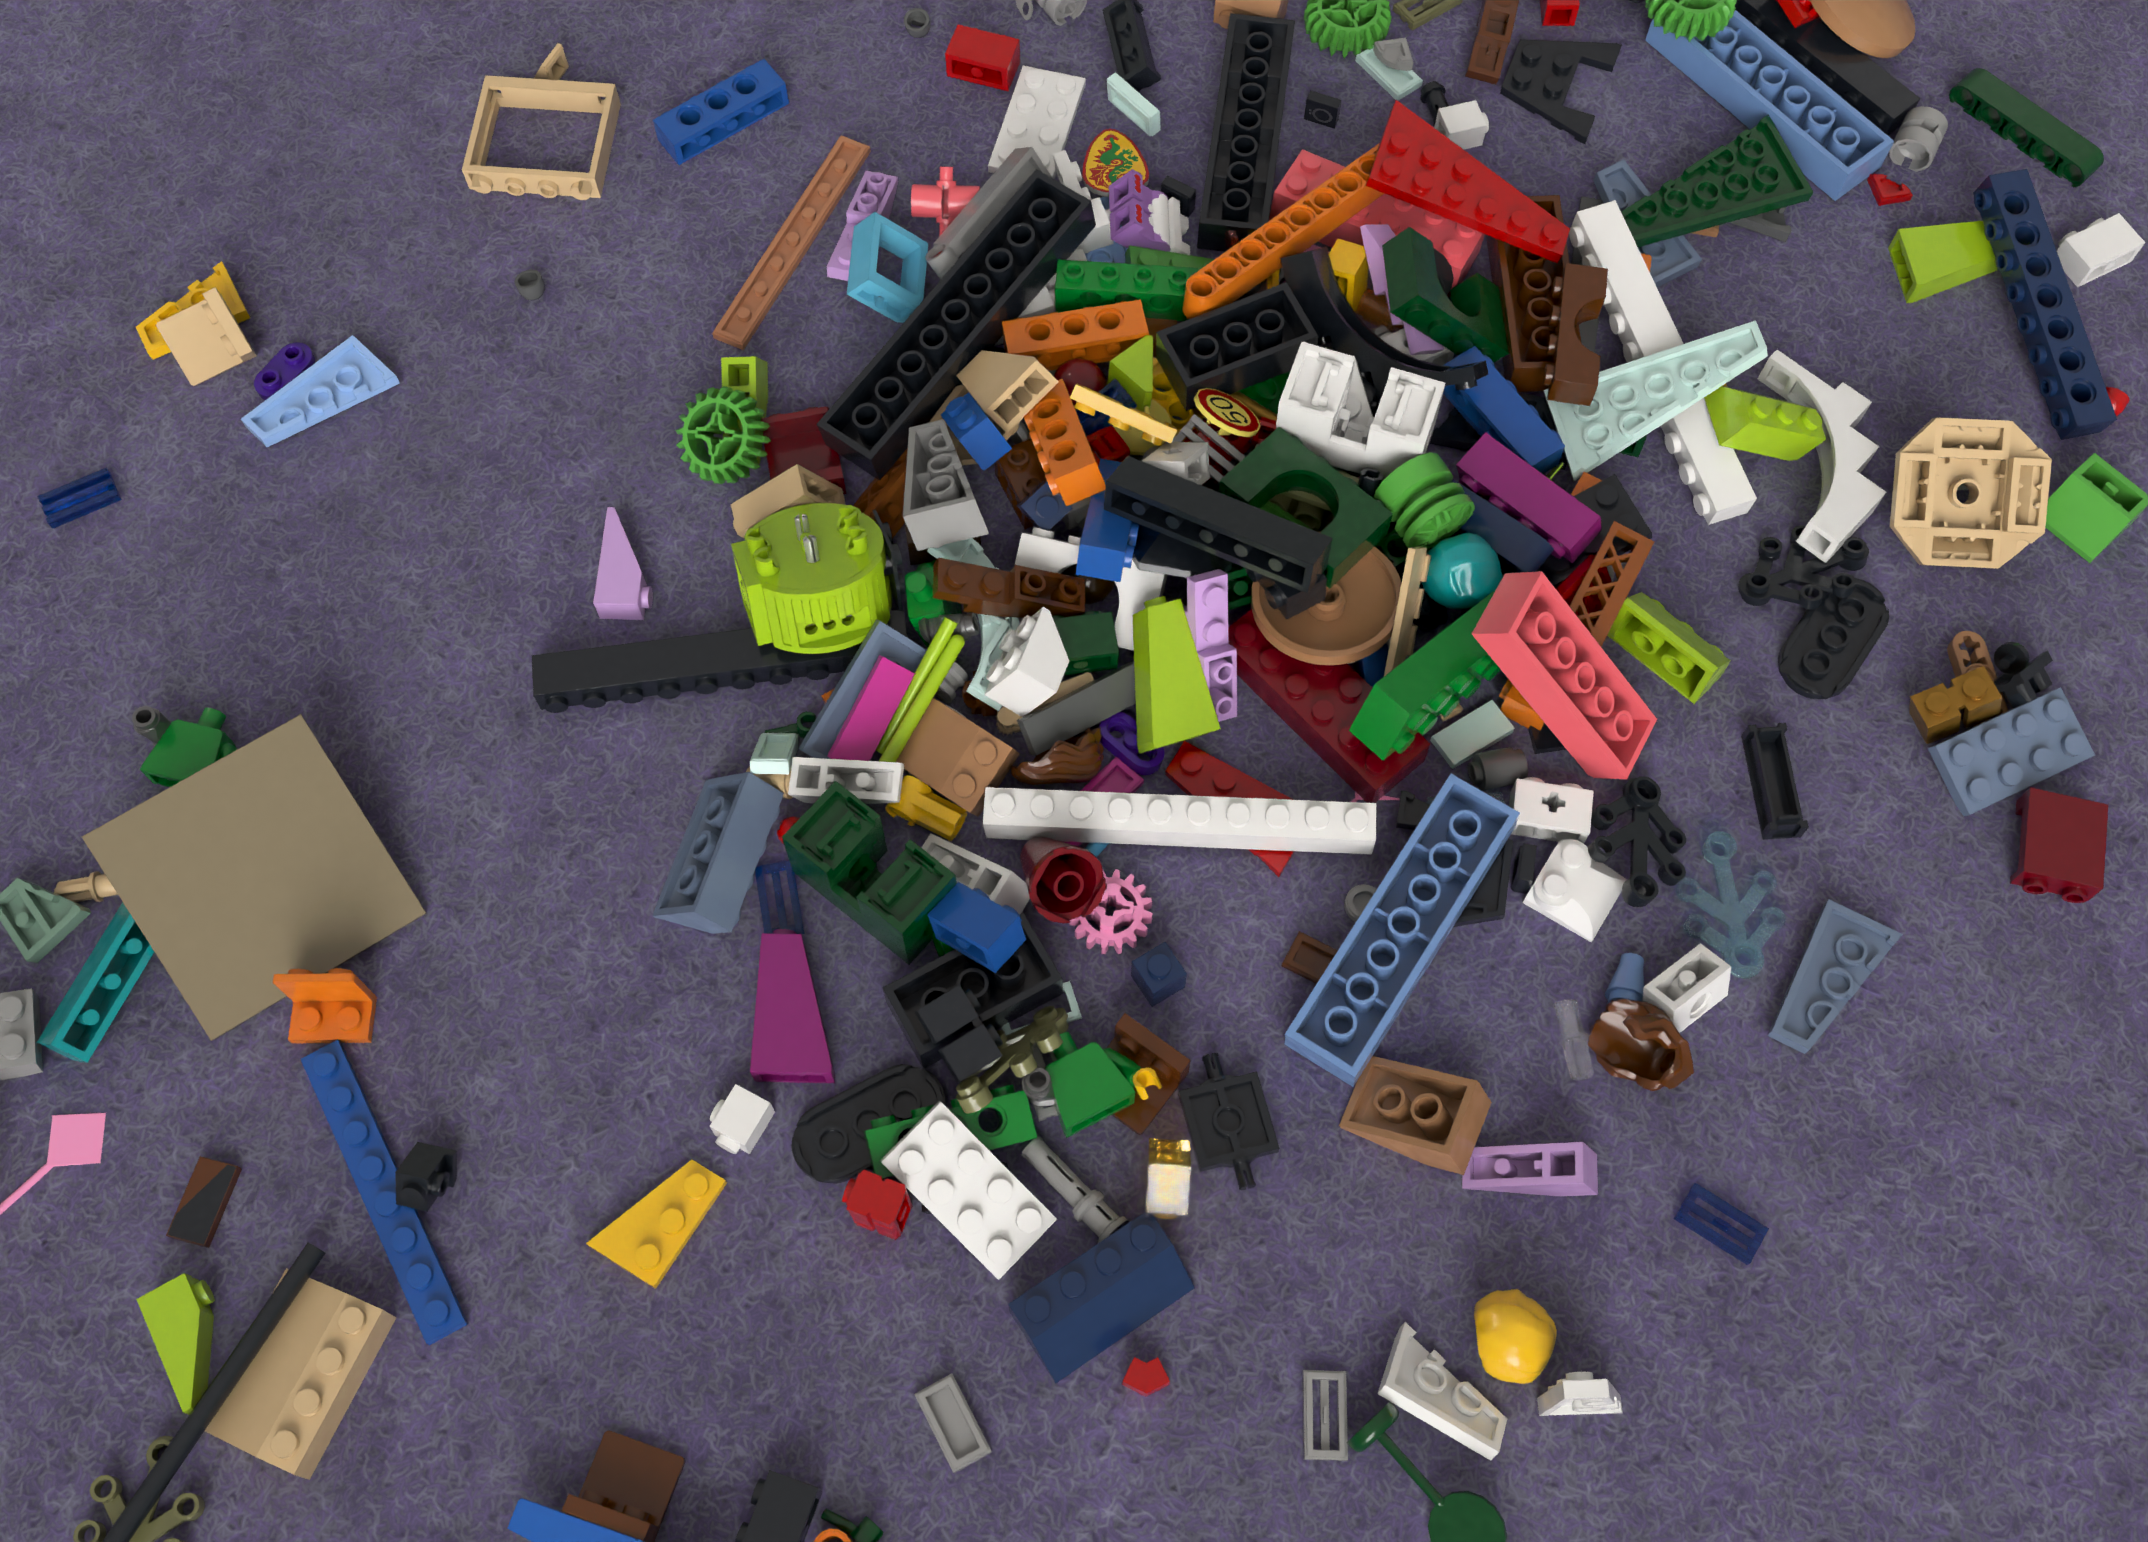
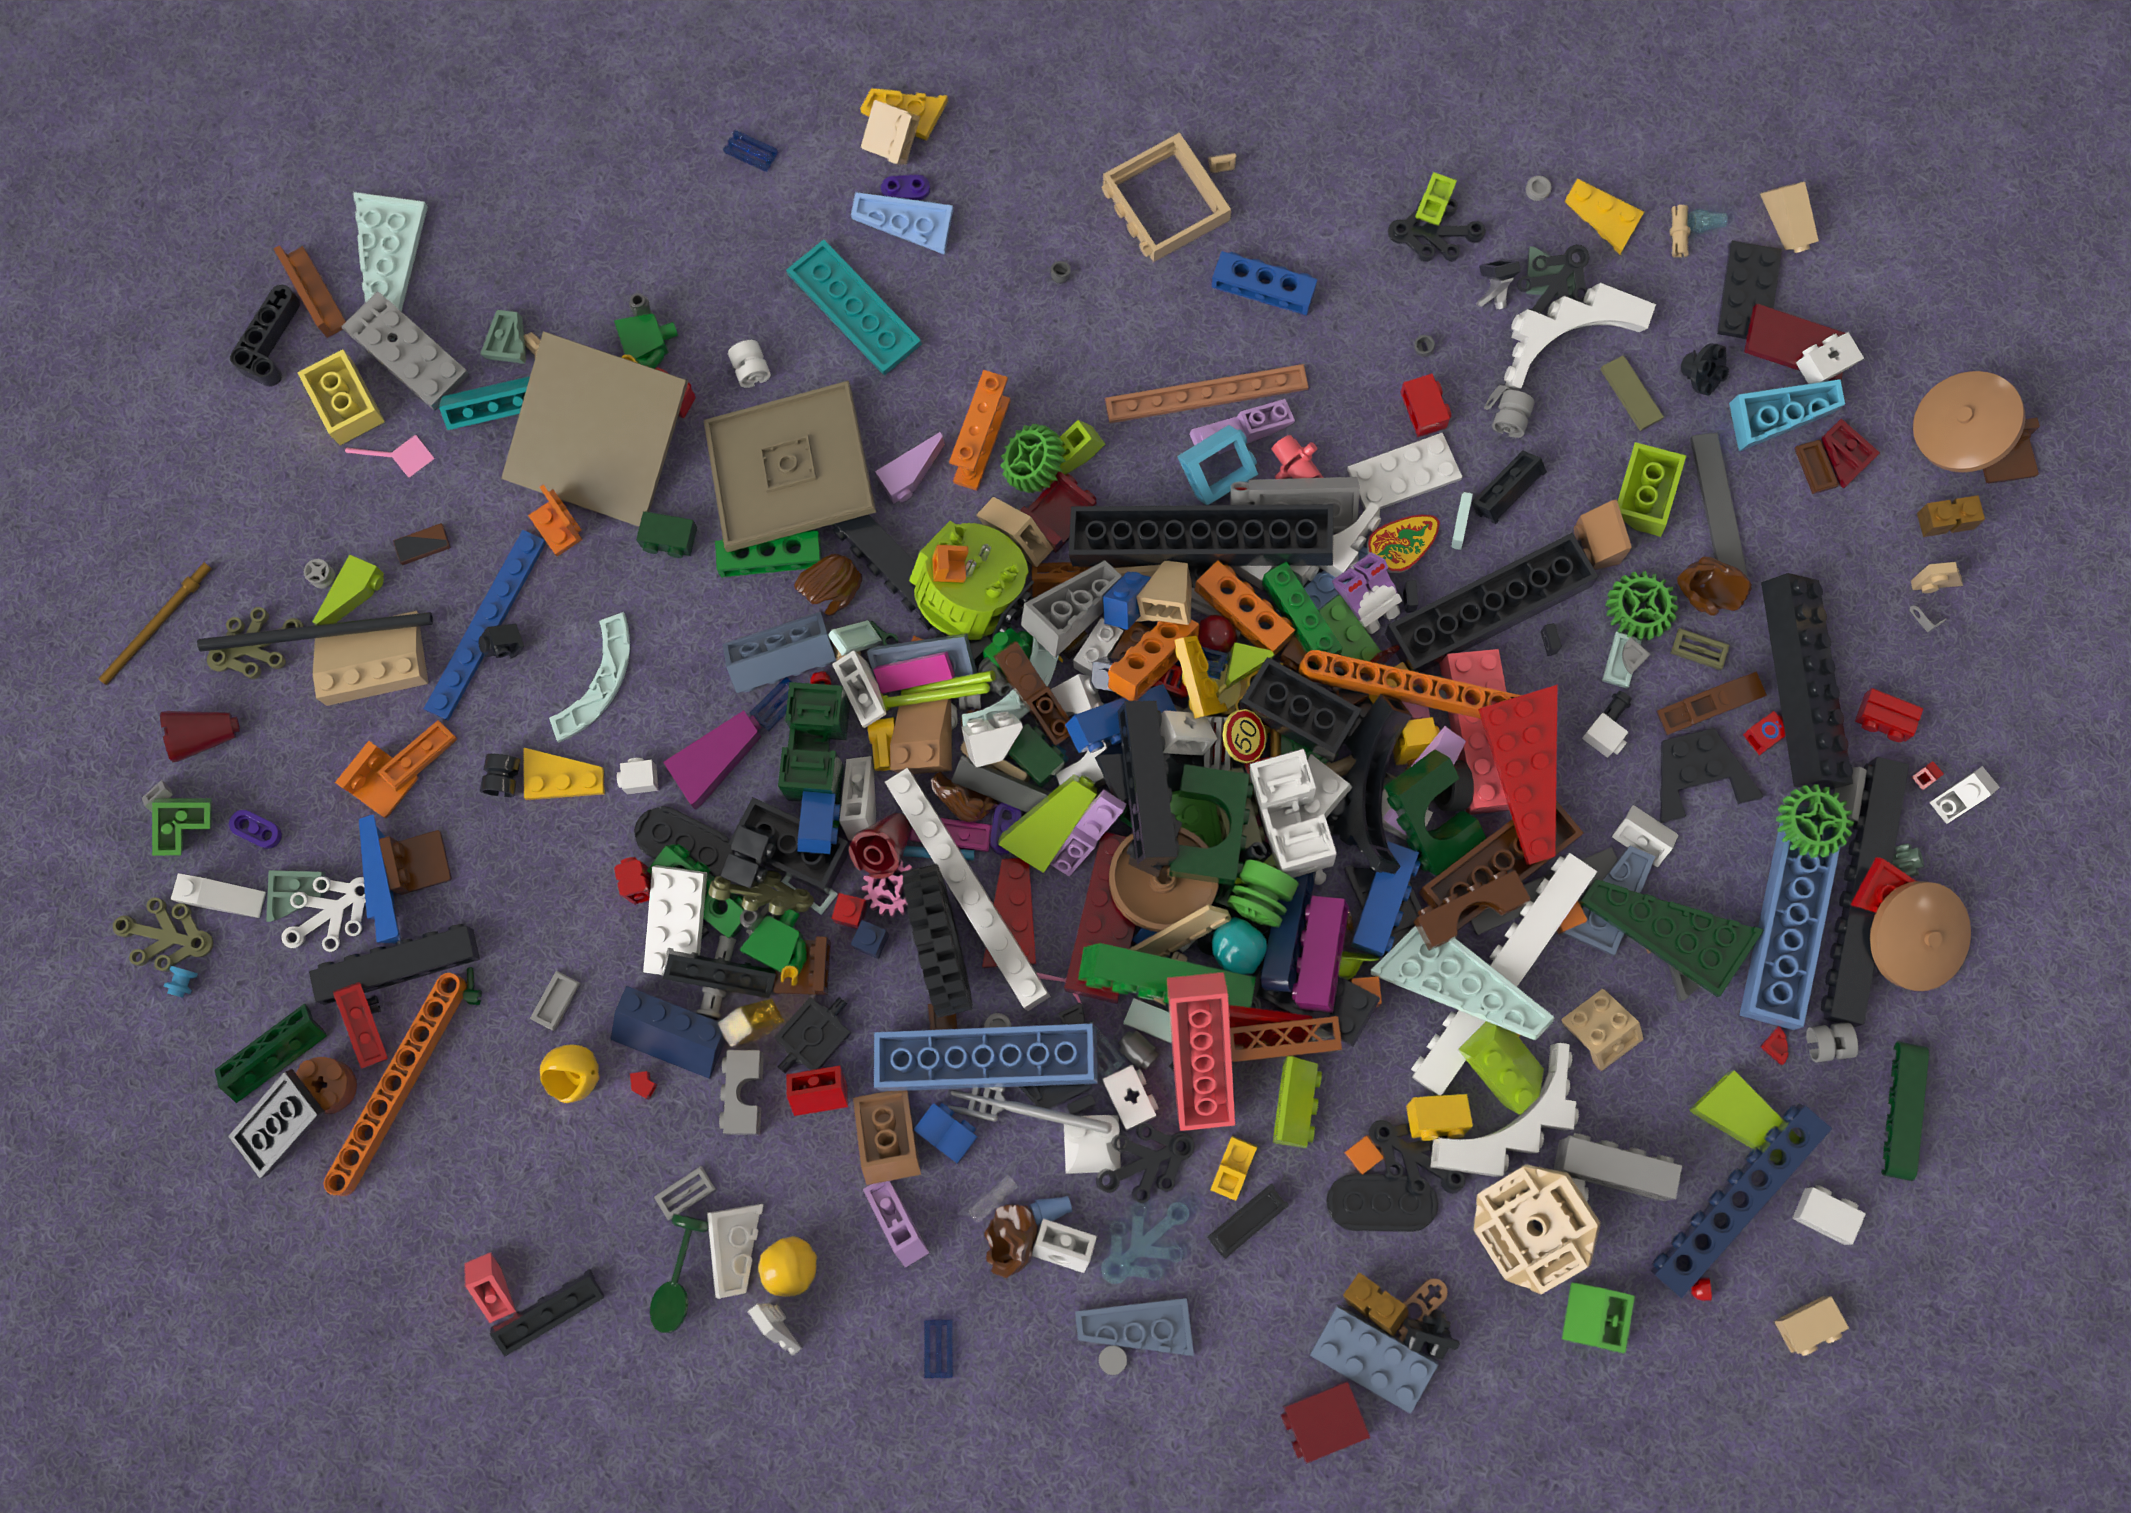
camera: 60 degrees right, 10 degrees up
(114, 1360) = (314, 569): none -> light grey wheel
(335, 658) = (749, 363): none -> white wheel
(372, 509) = (854, 307): none -> teal plate
(461, 887) = (666, 534): none -> dark green brick
(473, 1469) = (367, 785): none -> orange bracket
(483, 1393) = (417, 755): none -> orange tile
(503, 692) = (788, 466): none -> dark tan tile
(587, 806) = (781, 560): none -> green brick
(587, 1089) = (604, 685): none -> light aqua tile
(596, 1292) = (500, 774): none -> black wheel
(644, 462) = (980, 430): none -> orange fence
(680, 734) = (830, 579): none -> reddish brown hair
(786, 562) = (949, 563): none -> orange panel
(999, 513) = (1098, 645): none -> white brick
(1068, 1459) = (569, 1073): none -> yellow piece
(1073, 1179) = (718, 973): none -> black hinge
(1106, 975) = (849, 910): none -> red brick
(1235, 869) = (937, 940): none -> black tyre
(1271, 1277) = (739, 1069): none -> light grey arch
(1307, 1155) = (817, 1090): none -> red brick
(1459, 1039) = (946, 1133): none -> blue brick
(1462, 956) = (999, 1104): none -> light grey piece
(1585, 160) = (1646, 834): none -> white panel
(1704, 765) = (1233, 1168): none -> yellow slope
(1768, 621) = (1364, 1155): none -> orange tile
(1777, 517) = (1439, 1116): none -> yellow brick
(1779, 311) = (1604, 1028): none -> tan bracket
(1852, 1030) = (1112, 1360): none -> light grey tile
(1942, 386) = (1618, 1168): none -> light grey brick

